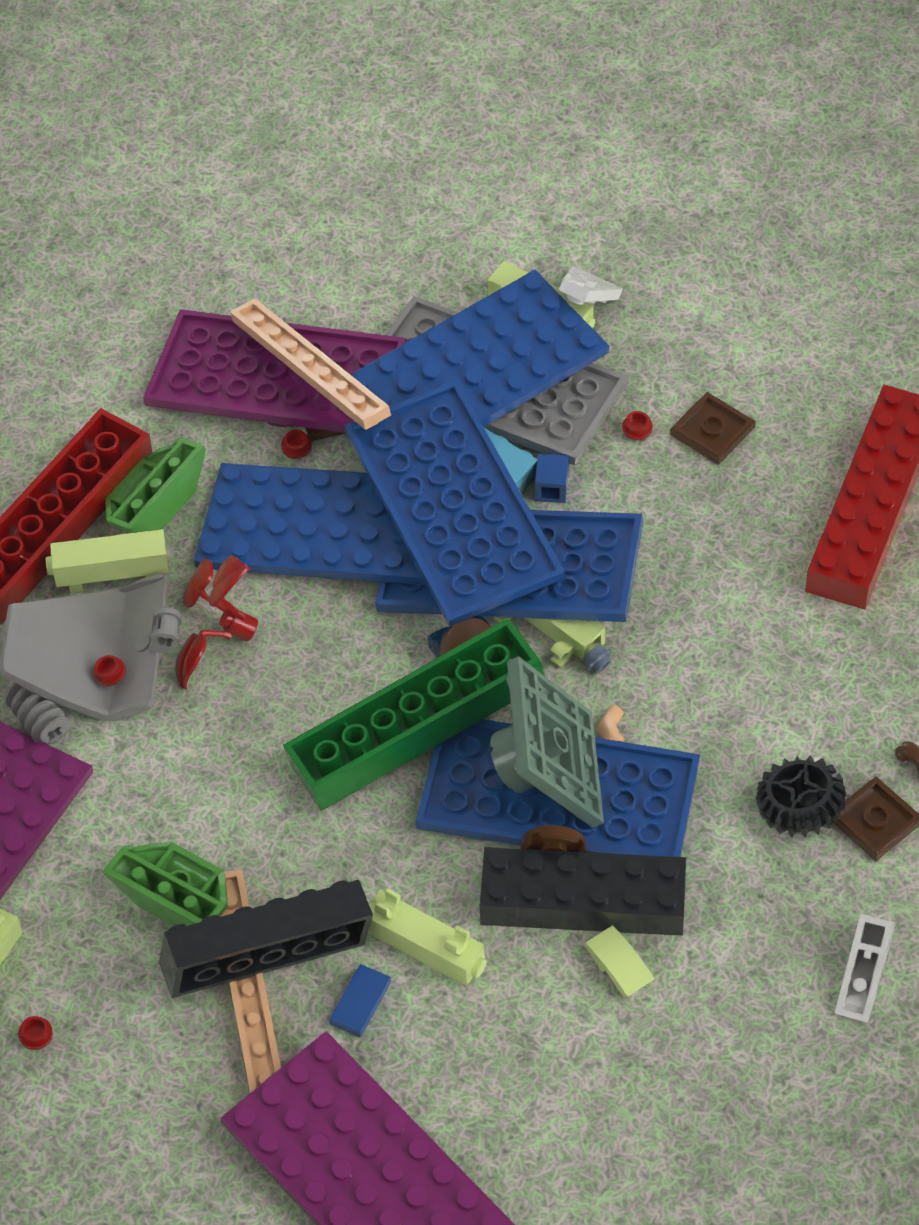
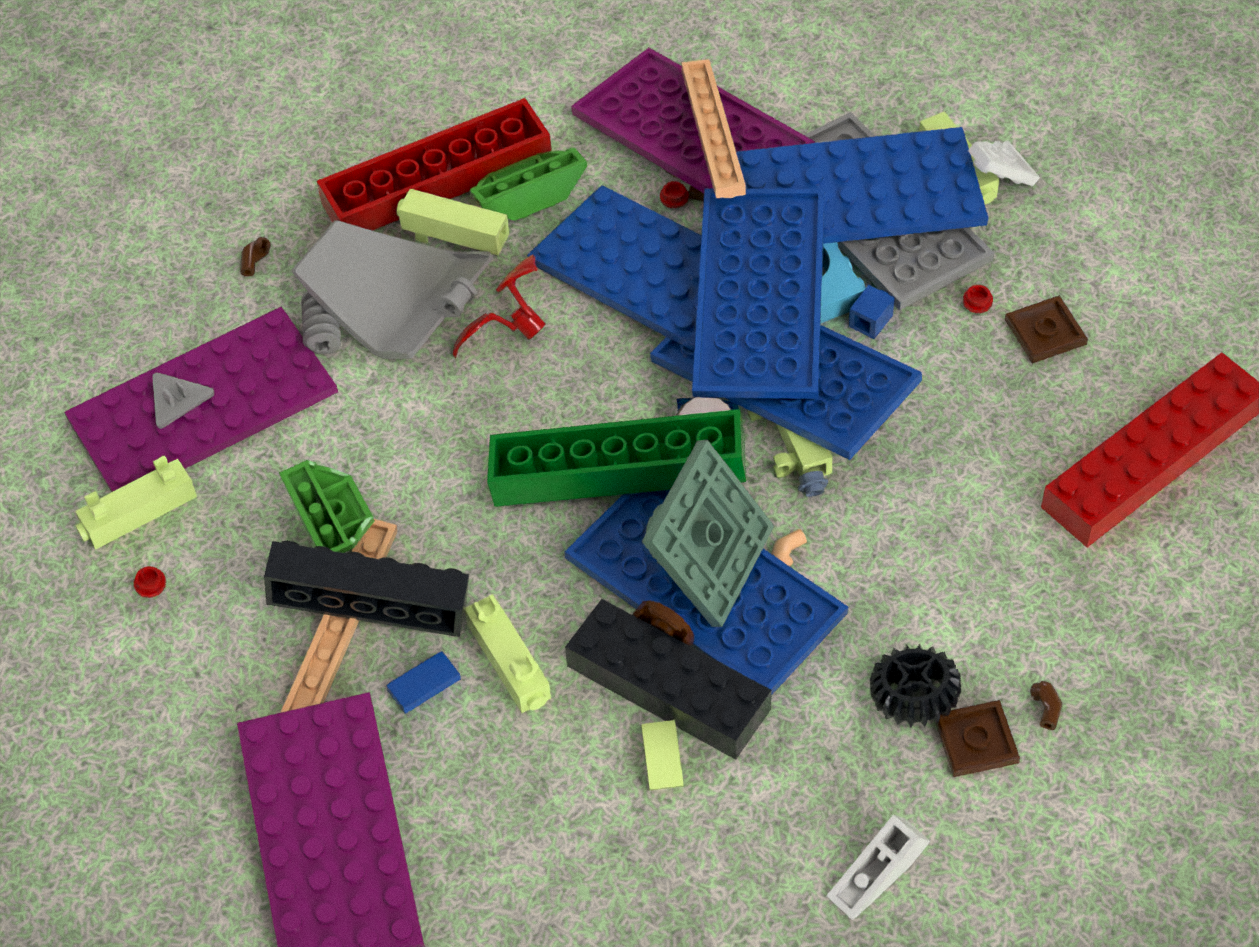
camera: 30 degrees right, 0 degrees up
(109, 670) = (398, 313): red plate -> none

